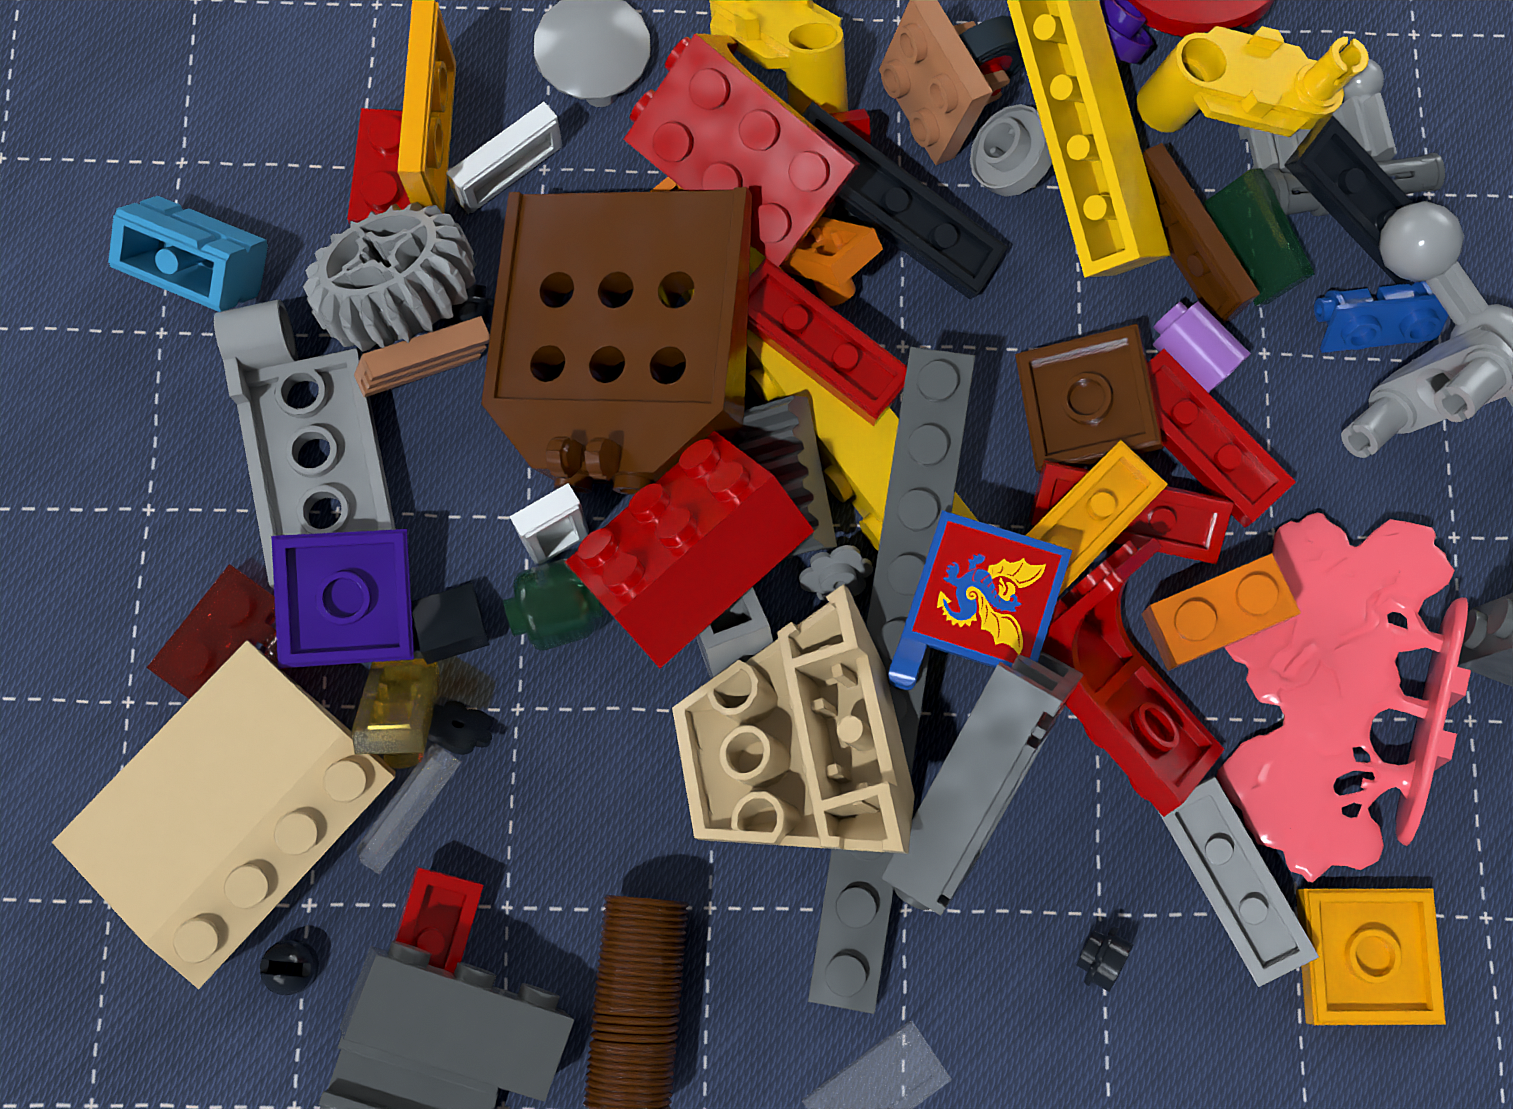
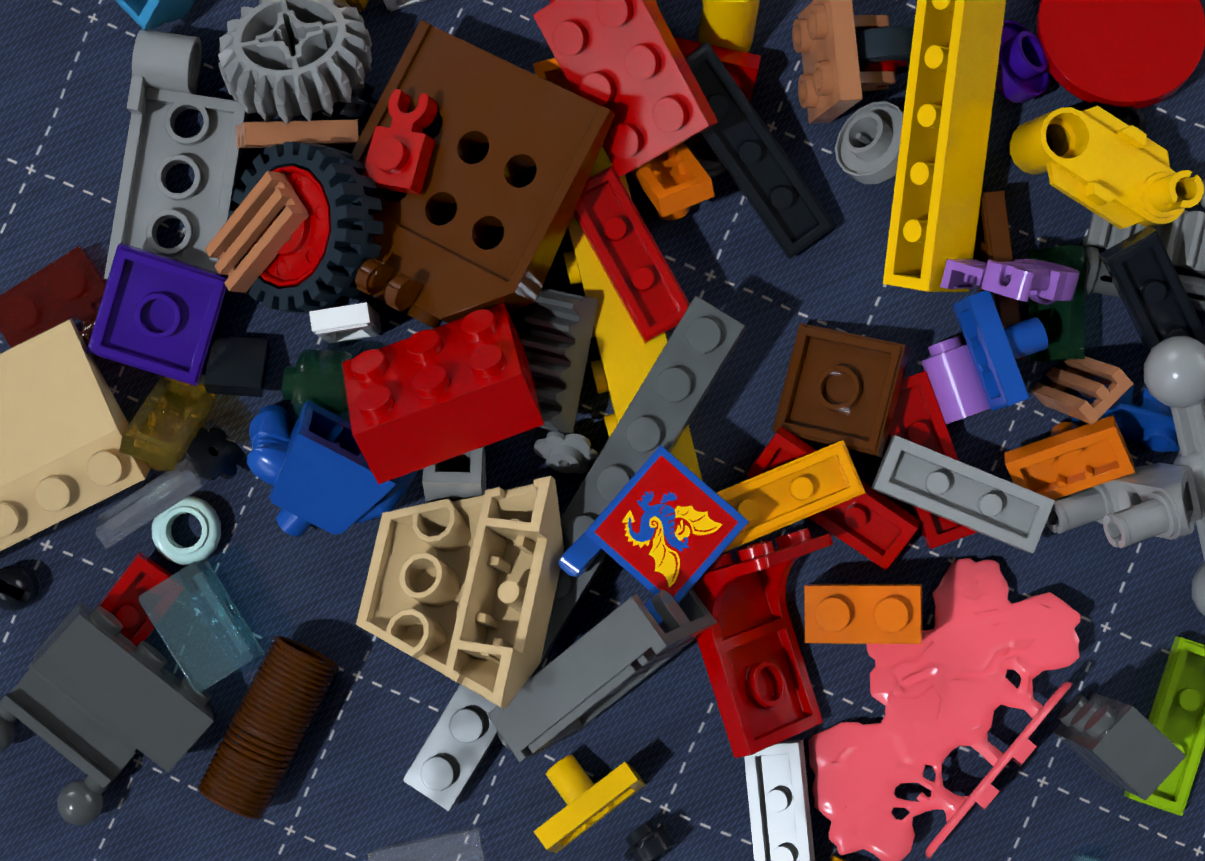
camera: 30 degrees right, 10 degrees up
(409, 459) = (251, 225): none -> nougat tile
(467, 441) = (328, 247): none -> black wheel
(480, 843) = (205, 545): none -> light aqua piece
(516, 920) = (200, 625): none -> clear light blue panel
(543, 324) = (402, 153): none -> red plate
(588, 694) = (317, 471): none -> blue torso
(1014, 937) = (585, 800): none -> yellow tile
(1224, 207) = (1024, 278): none -> medium lavender piece
(1231, 288) = (998, 348): none -> blue tile
(1263, 450) = (963, 494): none -> light grey plate
(1328, 289) = (1087, 378): none -> nougat tile
(1351, 376) = (1071, 459): none -> orange tile

